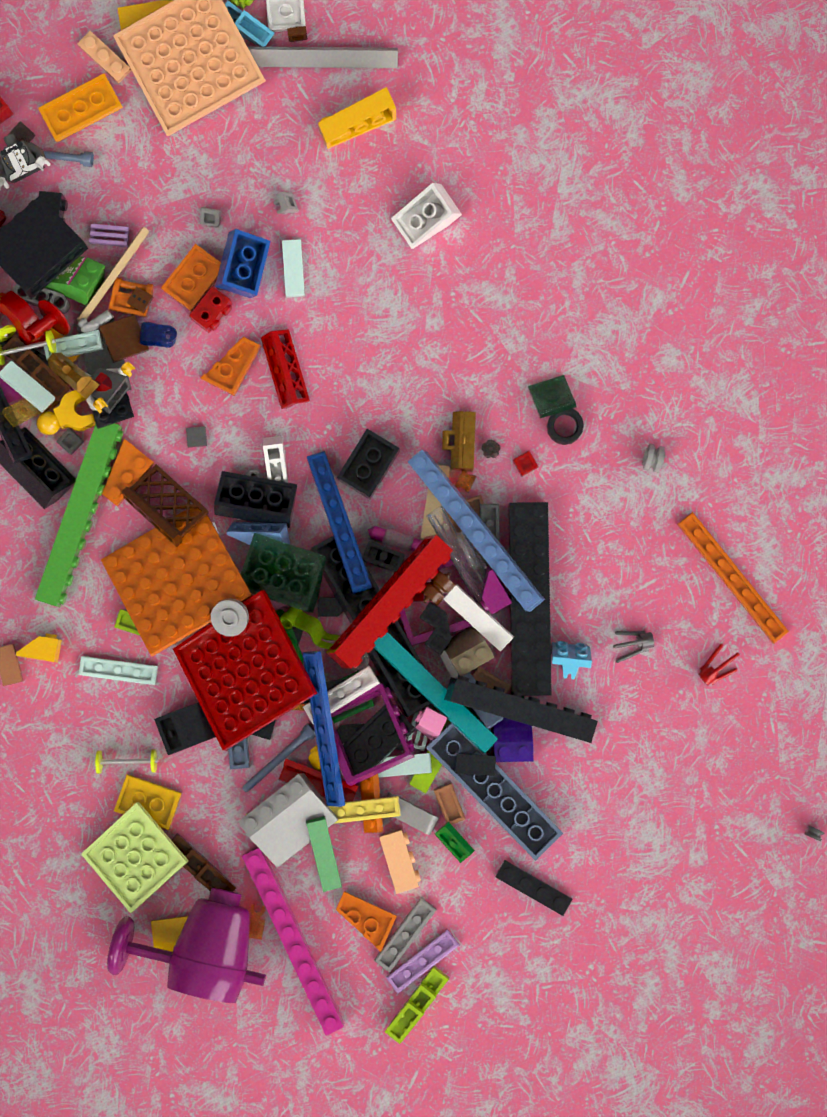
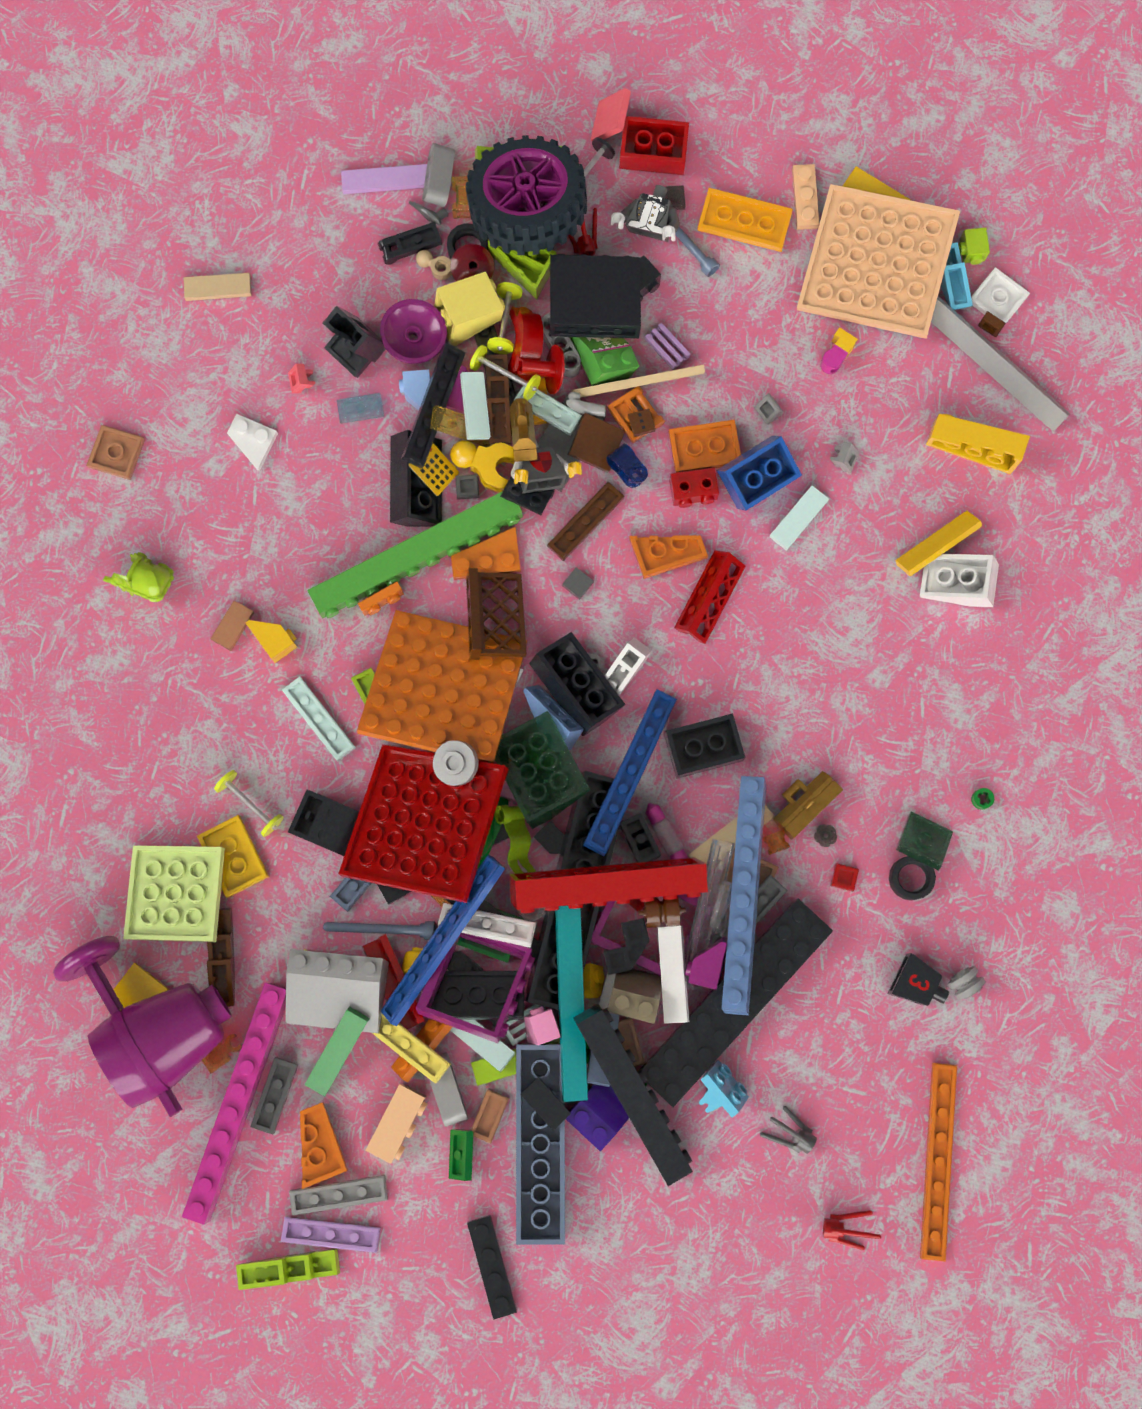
camera: 45 degrees right, 5 degrees down
(43, 450) = (437, 471): none -> yellow sticker
(83, 570) = (374, 603): none -> orange plate
(164, 393) = (585, 521): none -> reddish brown tile
(220, 141) = (837, 355): none -> leg
(311, 915) = (274, 1095): none -> dark grey plate
(392, 204) = (938, 543): none -> yellow tile
(435, 667) = (593, 980): none -> yellow plate
(566, 333) = (989, 796): none -> green bush
(625, 485) = (917, 982): none -> black torso

